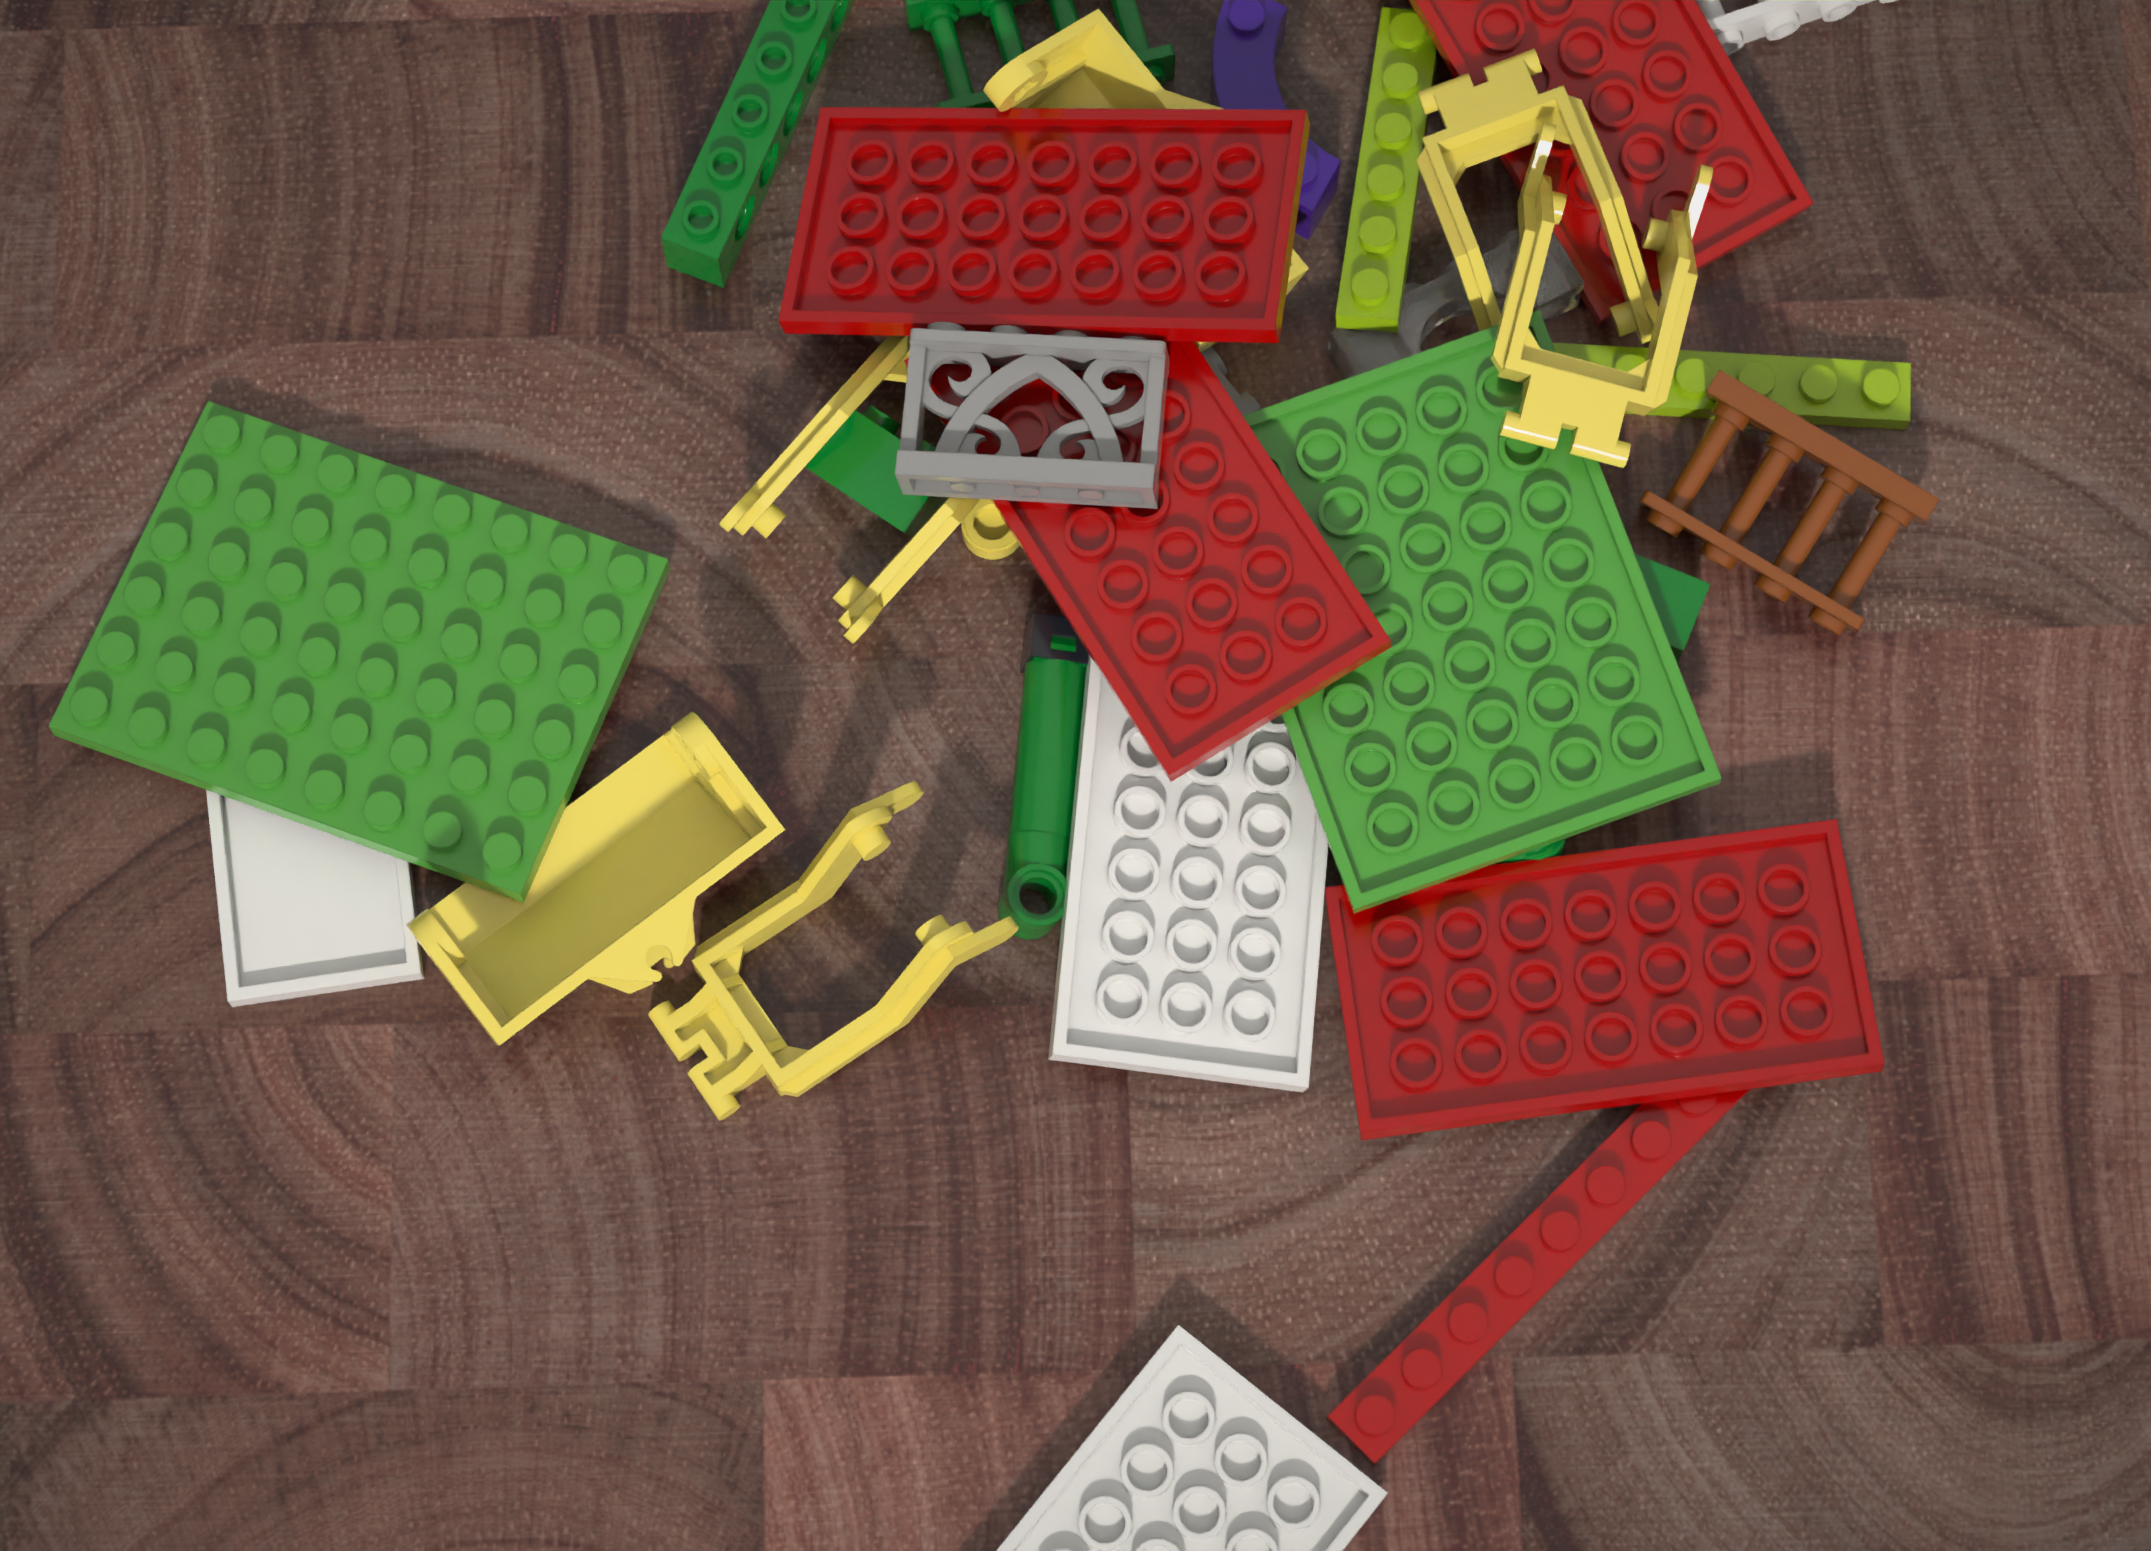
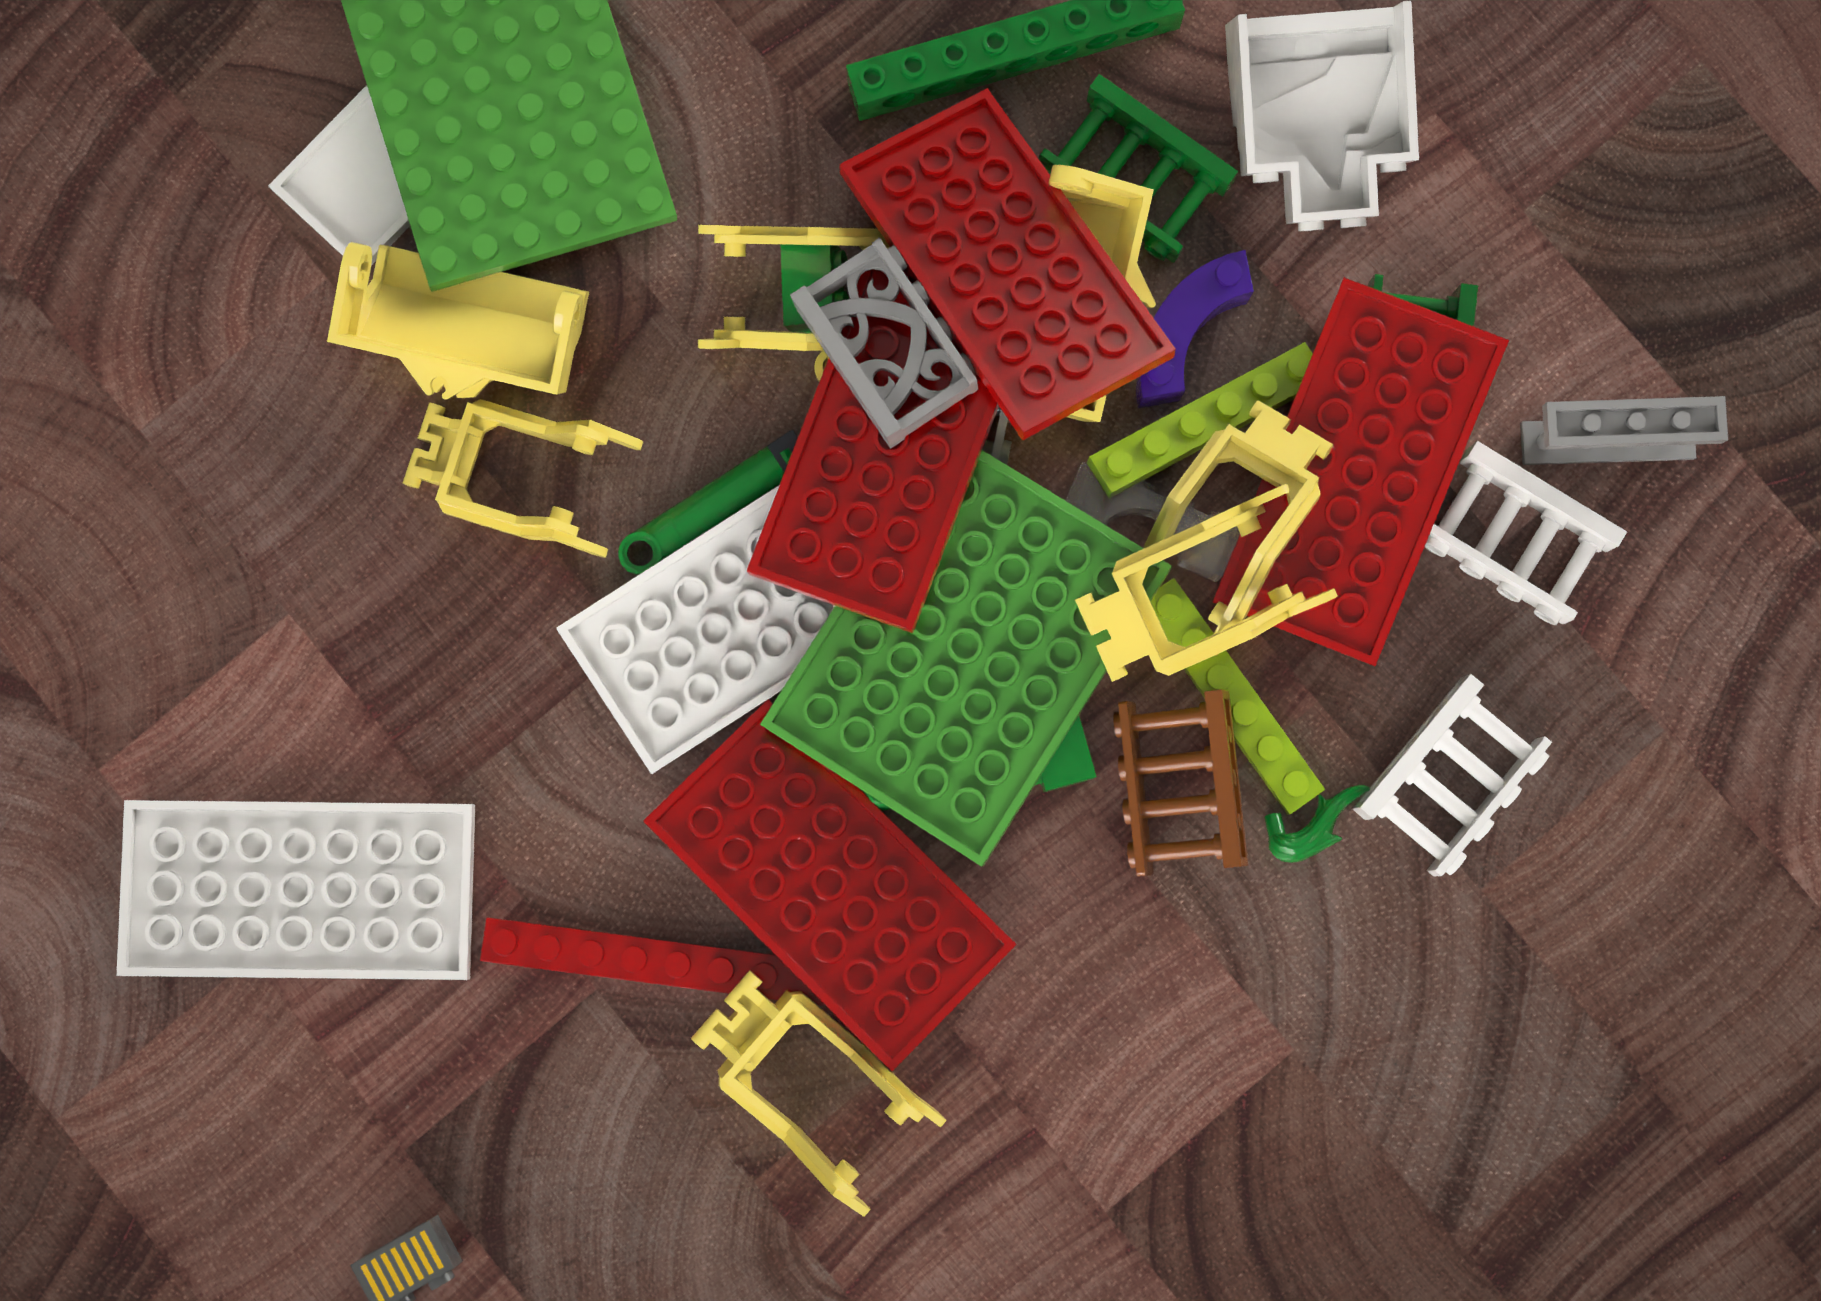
camera: 55 degrees right, 10 degrees up
(1714, 1200) = (751, 1035): none -> light yellow piece
(1954, 257) = (1436, 735): none -> white fence
(1955, 409) = (1314, 836): none -> green piece

